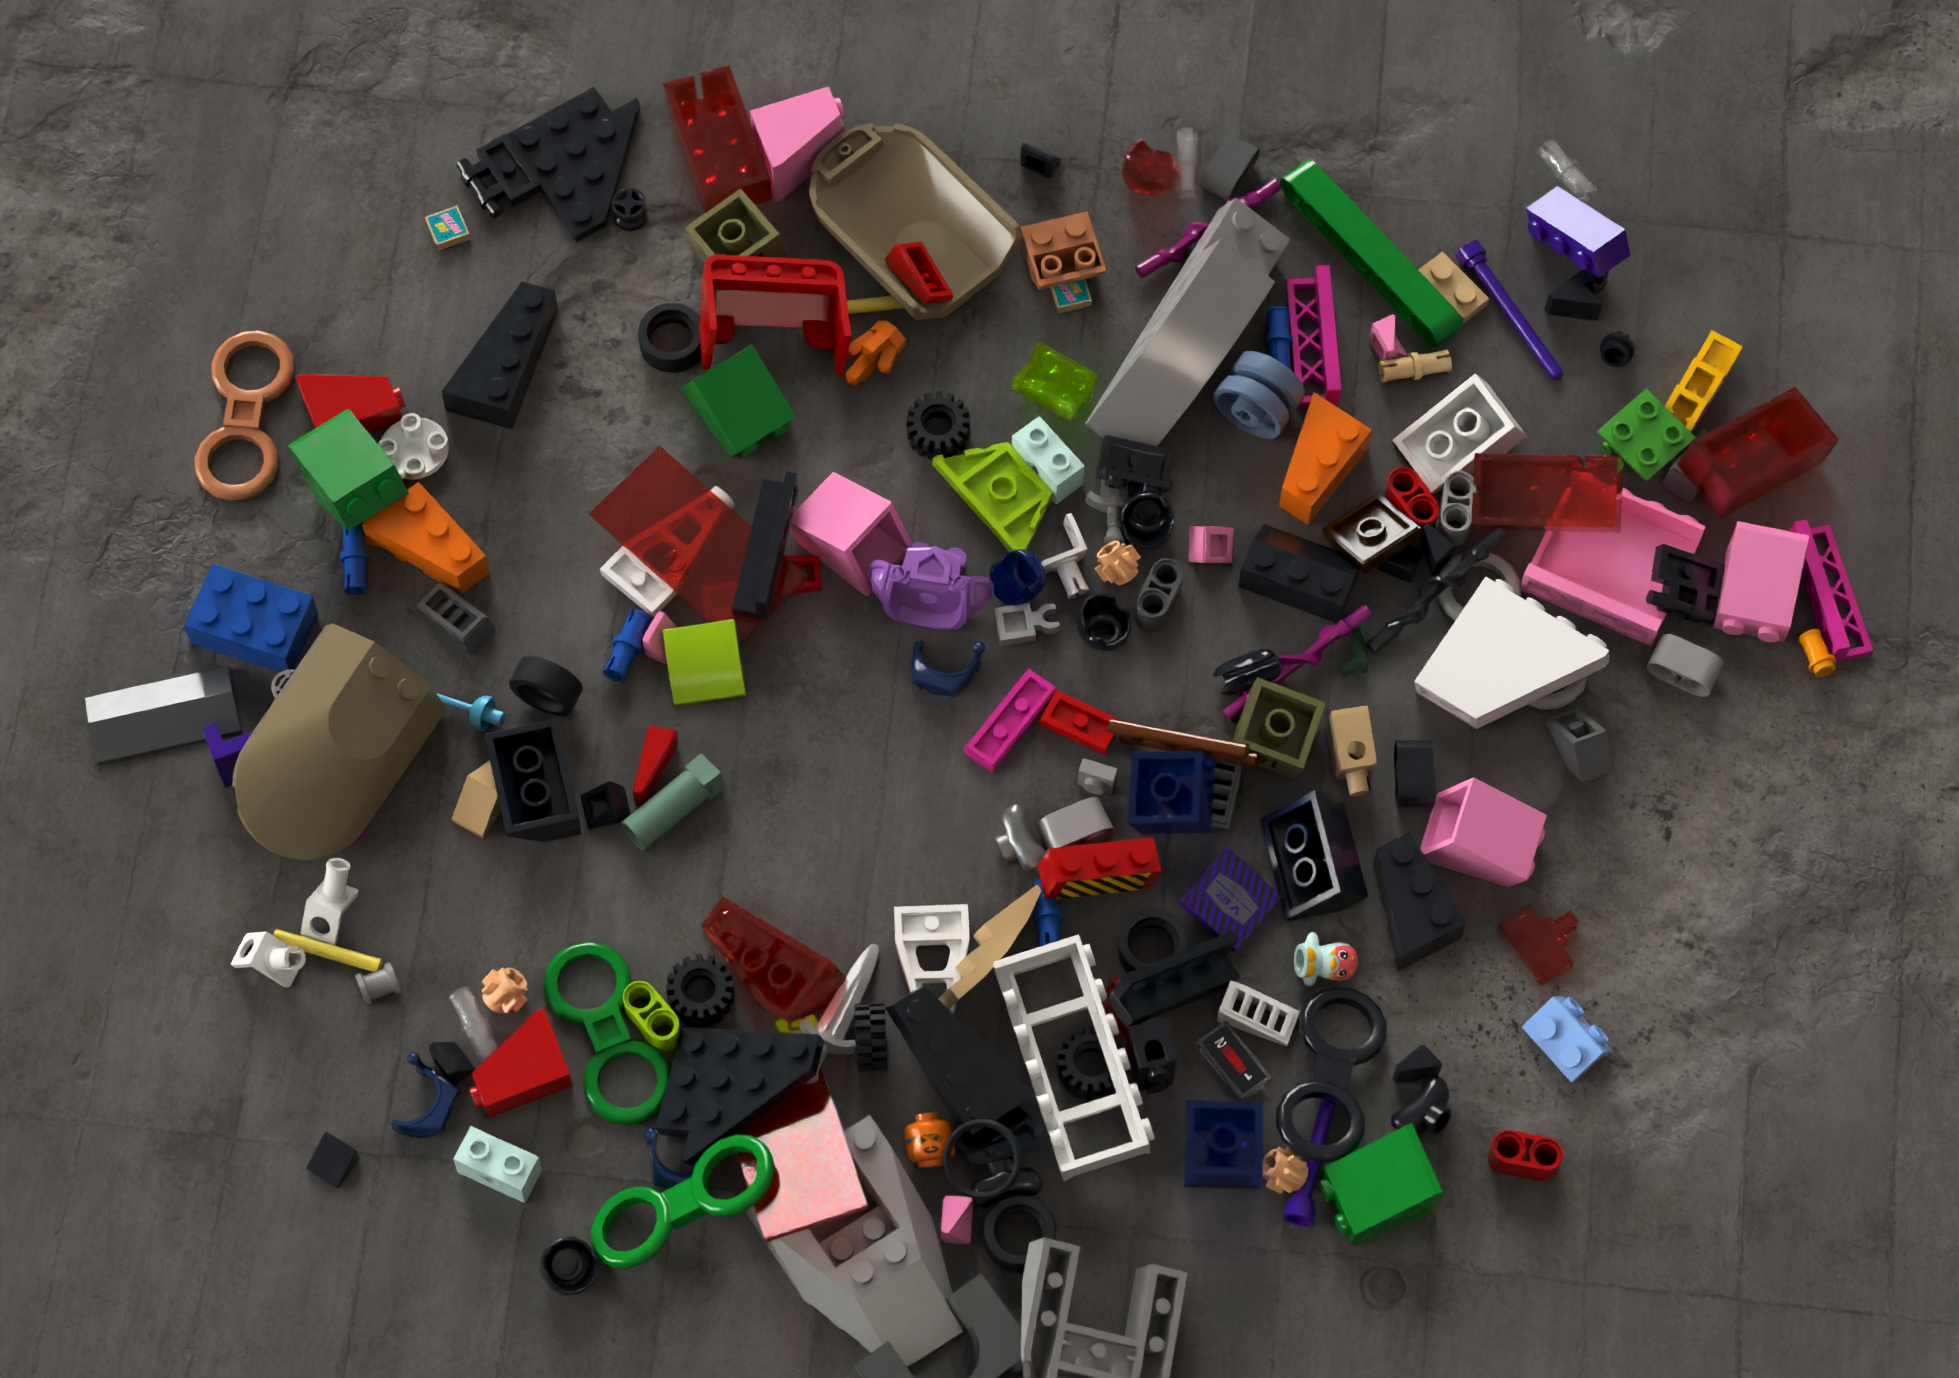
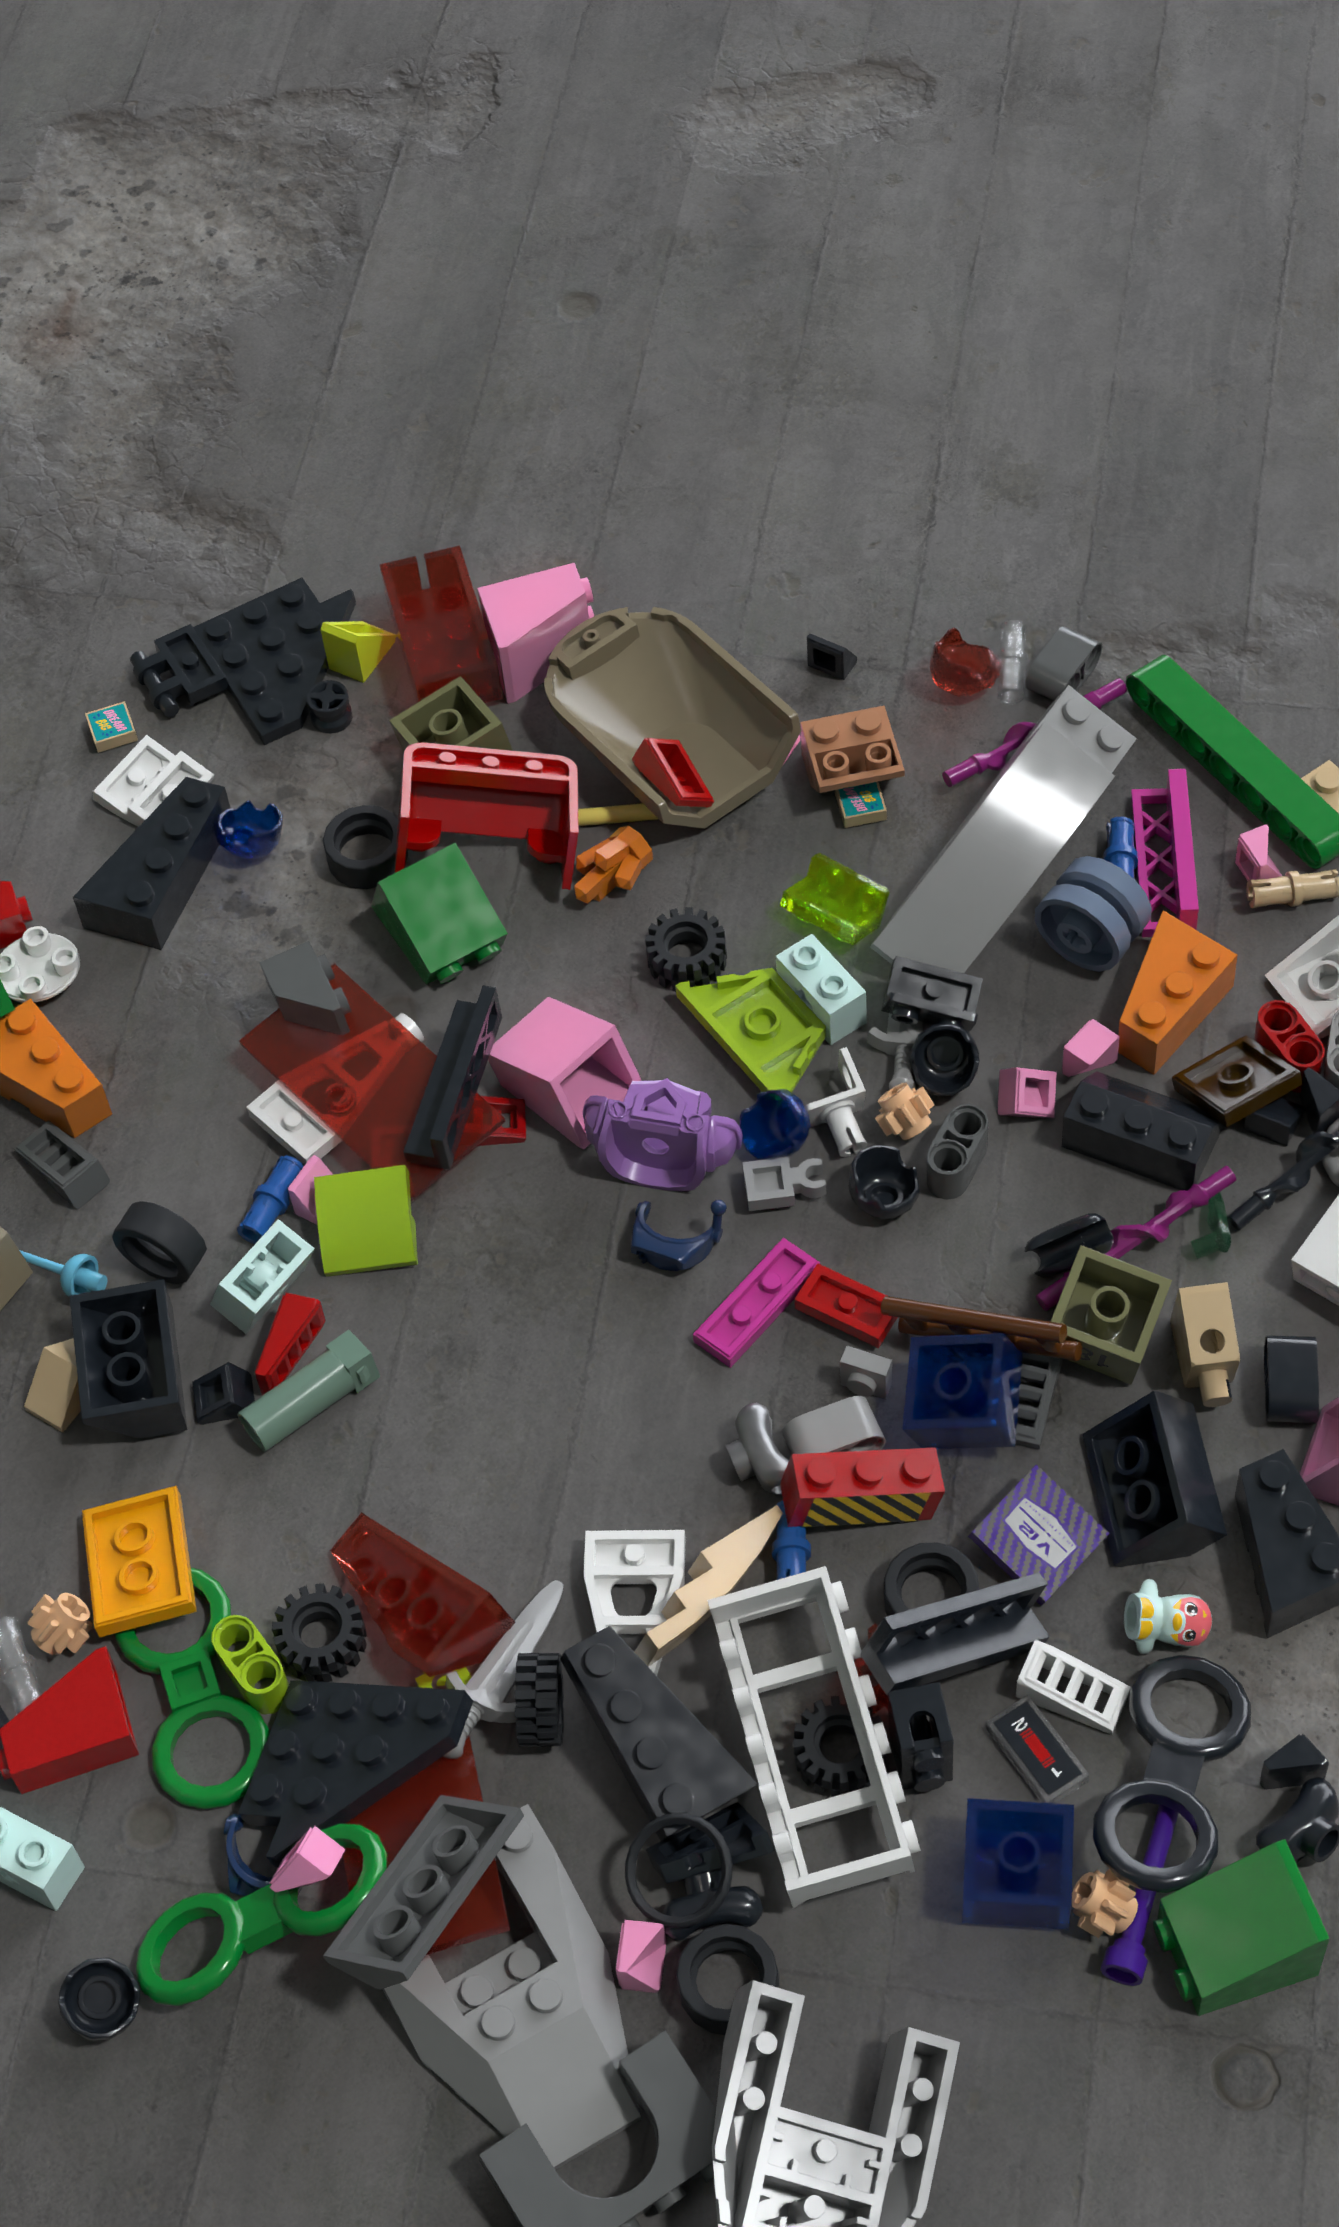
camera: 10 degrees right, 10 degrees down
(486, 281) = (146, 780): none -> white slope
(557, 939) = (138, 1561): none -> light orange tile
(576, 324) = (249, 830): none -> clear blue hair
(629, 711) = (262, 1276): none -> light aqua brick
(640, 474) = (303, 989): none -> dark grey slope
(646, 153) = (355, 647): none -> neon yellow slope
(717, 1164) = (308, 1861): none -> bright pink slope
(804, 1182) = (421, 1890): none -> dark grey slope
(927, 1140) = (605, 1843): orange head -> none
(1258, 507) = (1090, 1049): none -> bright pink slope

